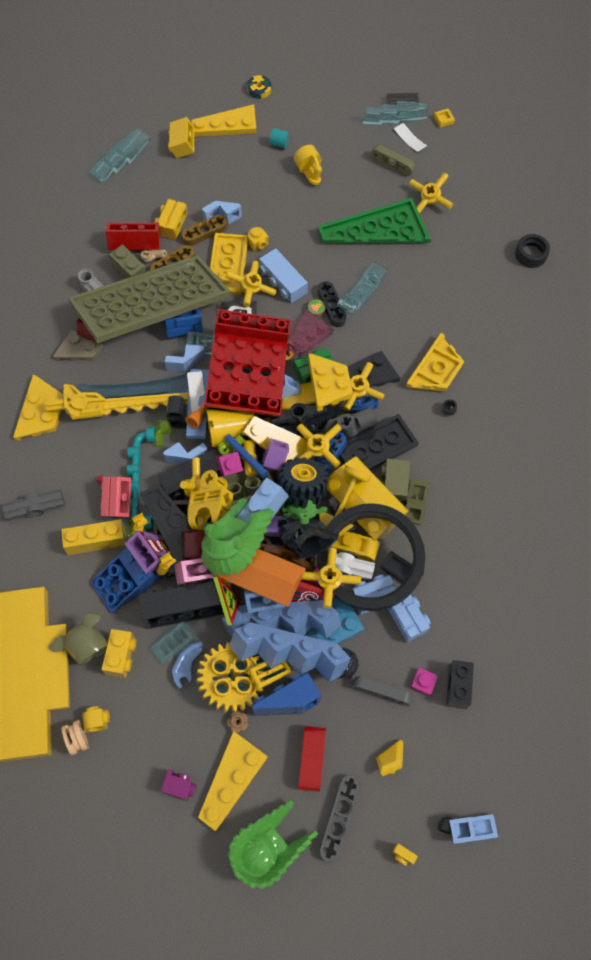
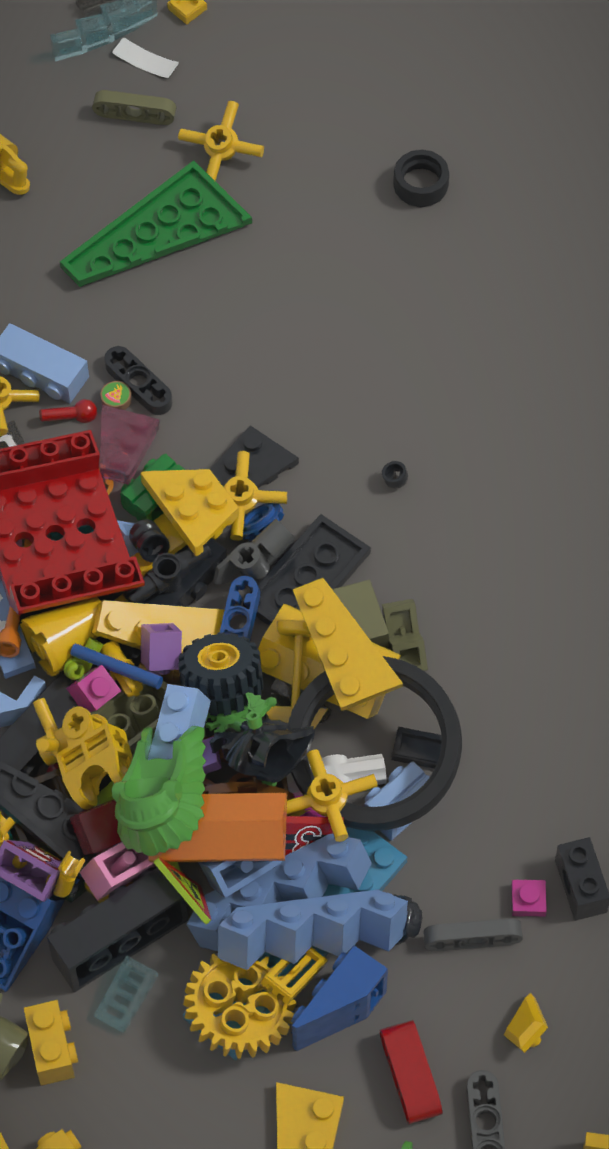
camera: 20 degrees left, 5 degrees down
(183, 663) = (155, 1022): medium blue piece -> none
(242, 717) = (280, 1075): medium nougat plate -> none
(296, 309) = (82, 411): none -> red bar
(296, 392) = (148, 539): none -> black wheel
(323, 440) = (217, 599): yellow bar -> none
(358, 545) = (347, 737): yellow plate -> none
(364, 289) = (179, 337): clear light blue slope -> none
(375, 498) = (346, 652): none -> yellow wing
(410, 619) = (469, 814): light blue brick -> none
(437, 367) = (349, 419): yellow wing -> none

